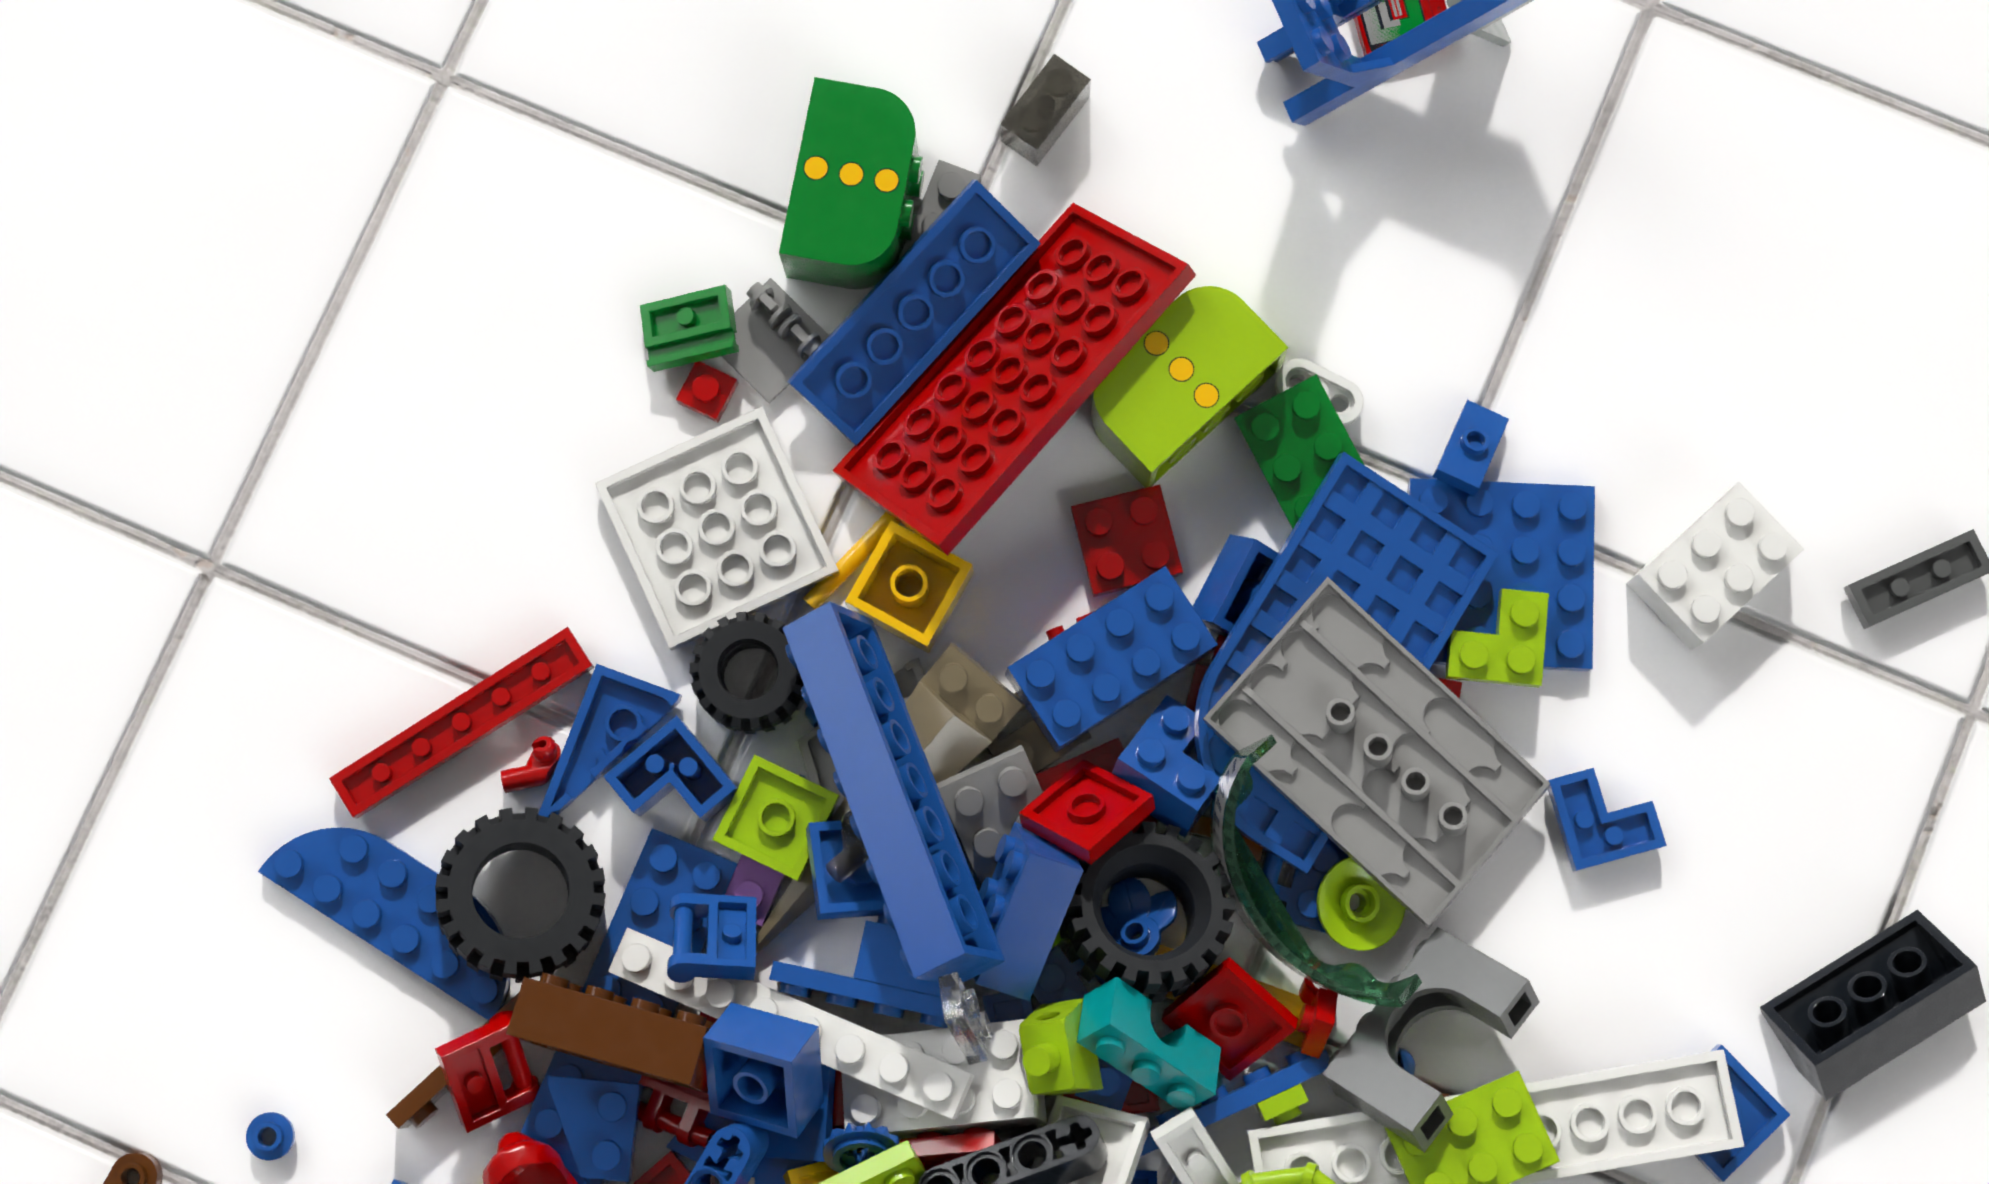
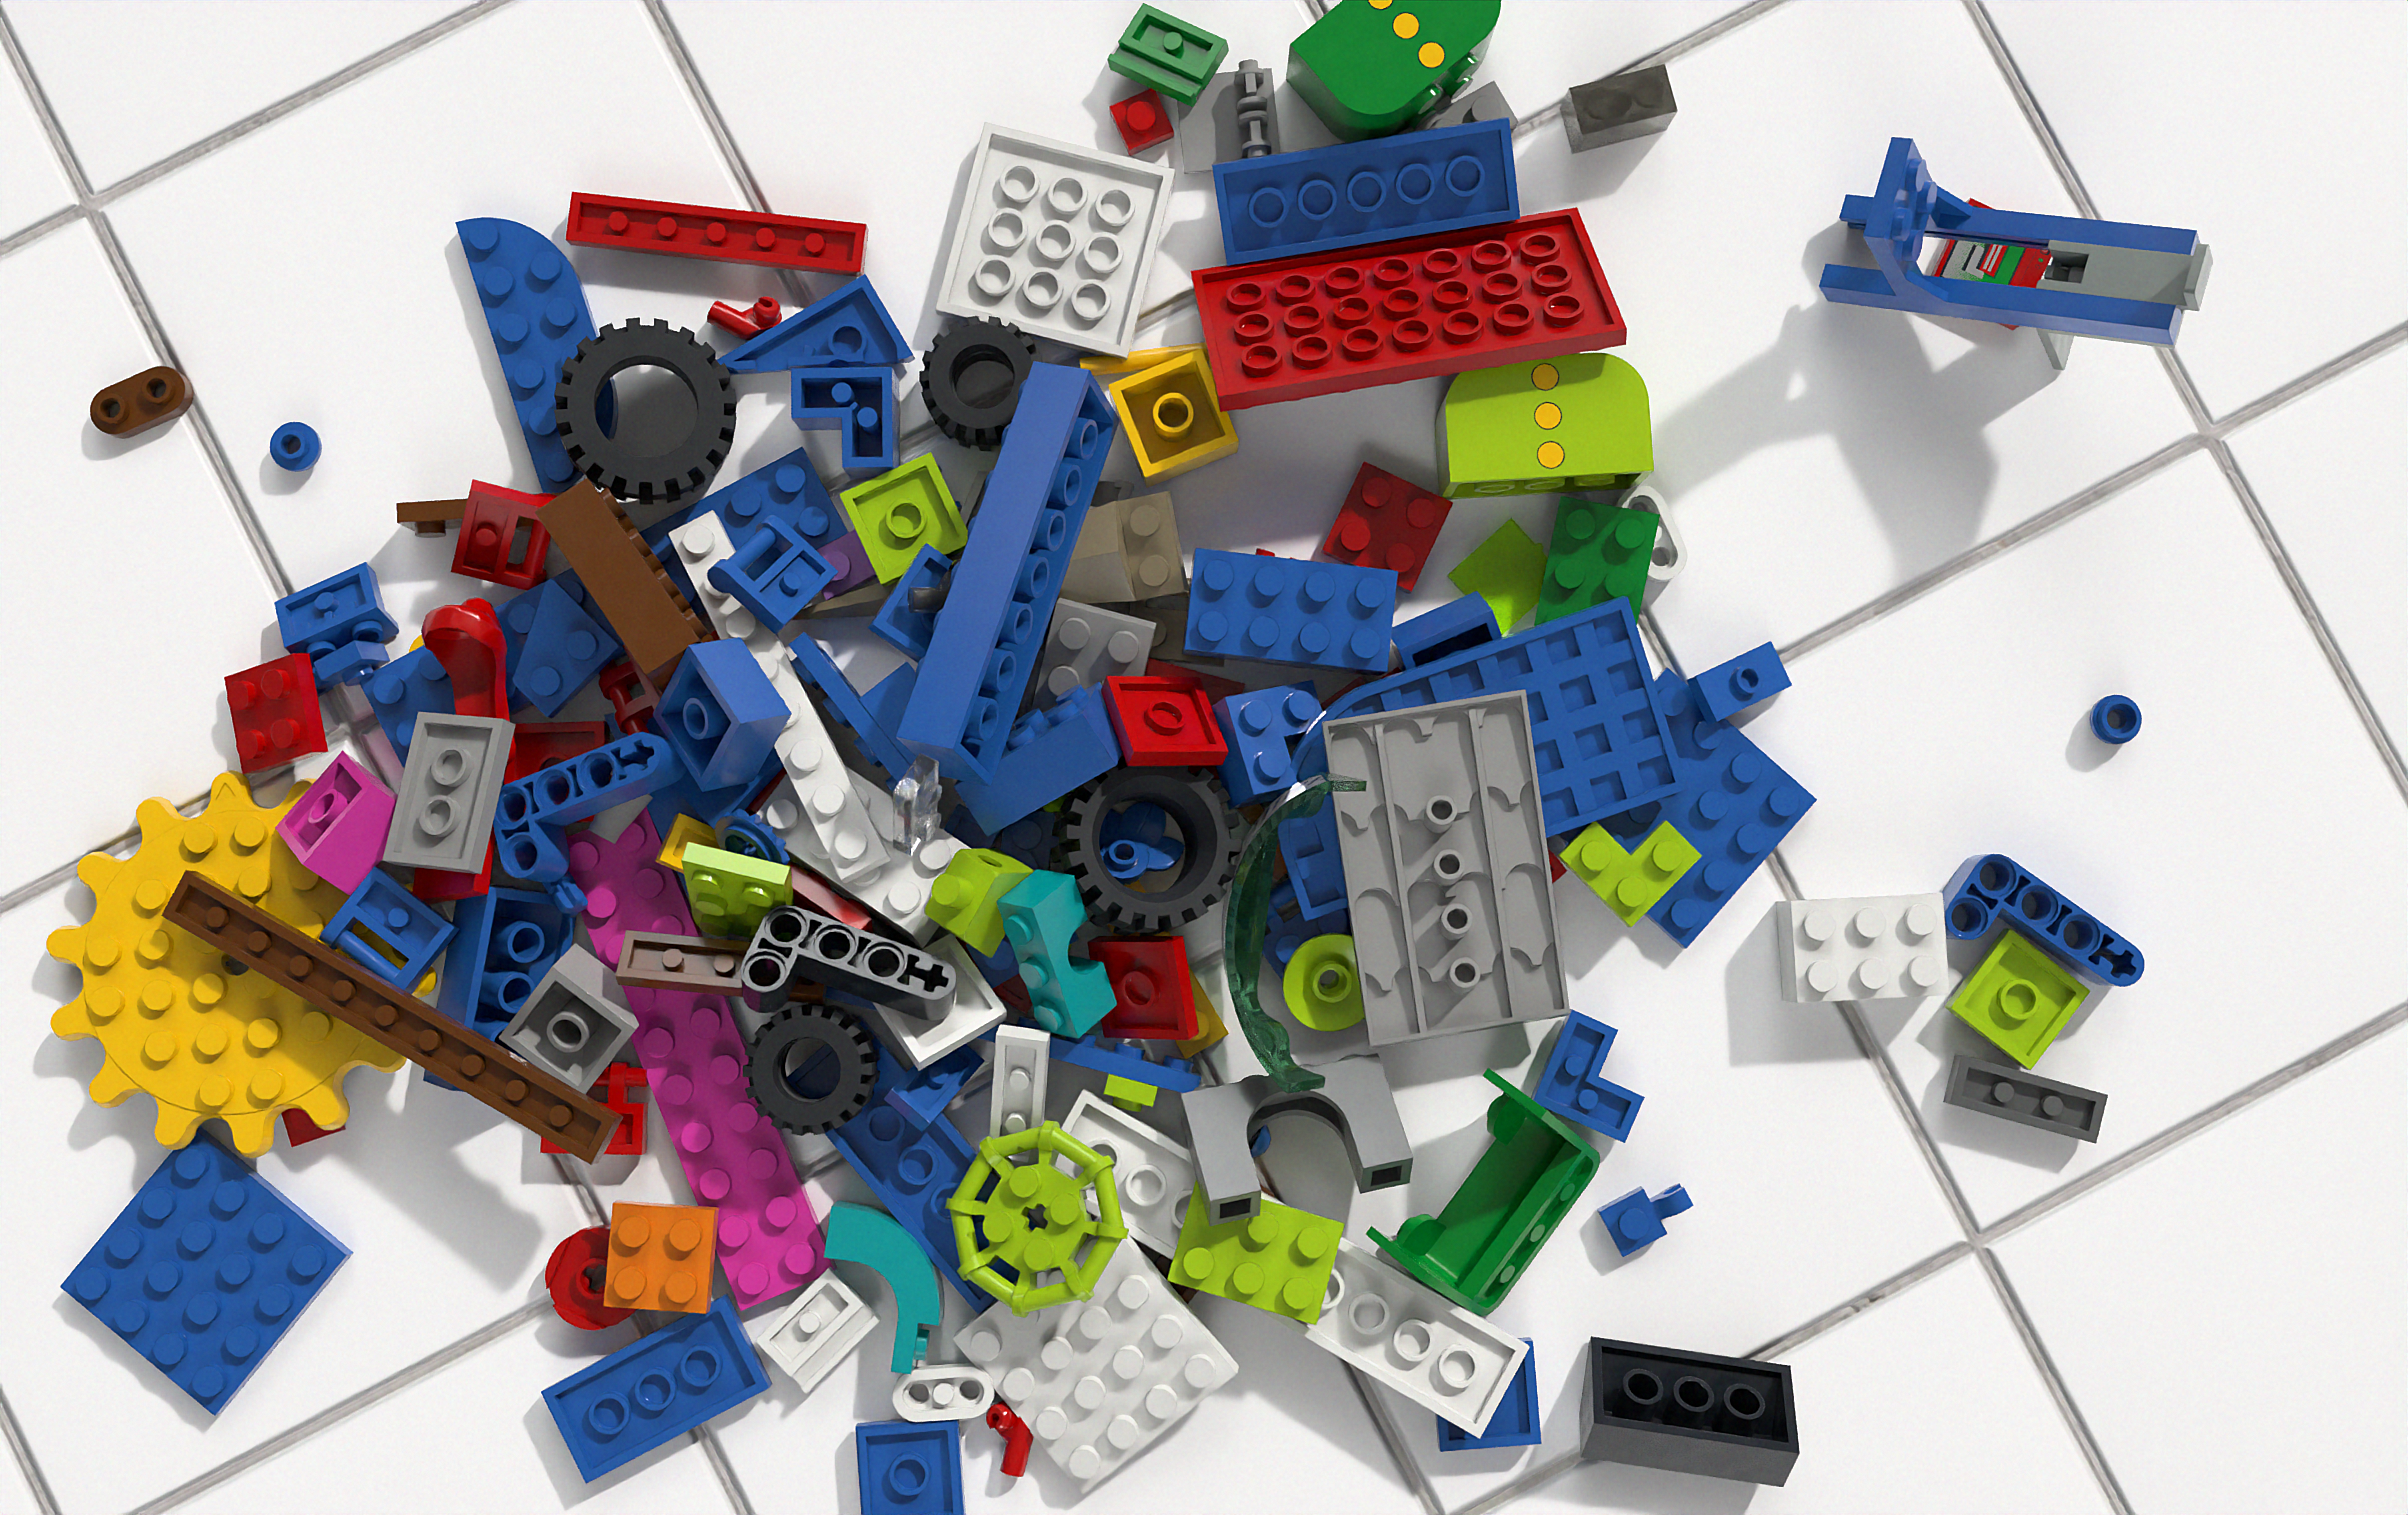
camera: 30 degrees right, 5 degrees up
(1238, 504) = (1505, 573): none -> clear neon green piece
(1316, 1017) = (1214, 1044): red plate -> none
(1618, 964) = (1502, 1207): none -> green windscreen
(1719, 894) = (1636, 1219): none -> blue plate
(1763, 249) = (2129, 717): none -> blue plate
(1828, 444) = (2045, 926): none -> blue beam
(1853, 512) = (2017, 999): none -> lime plate

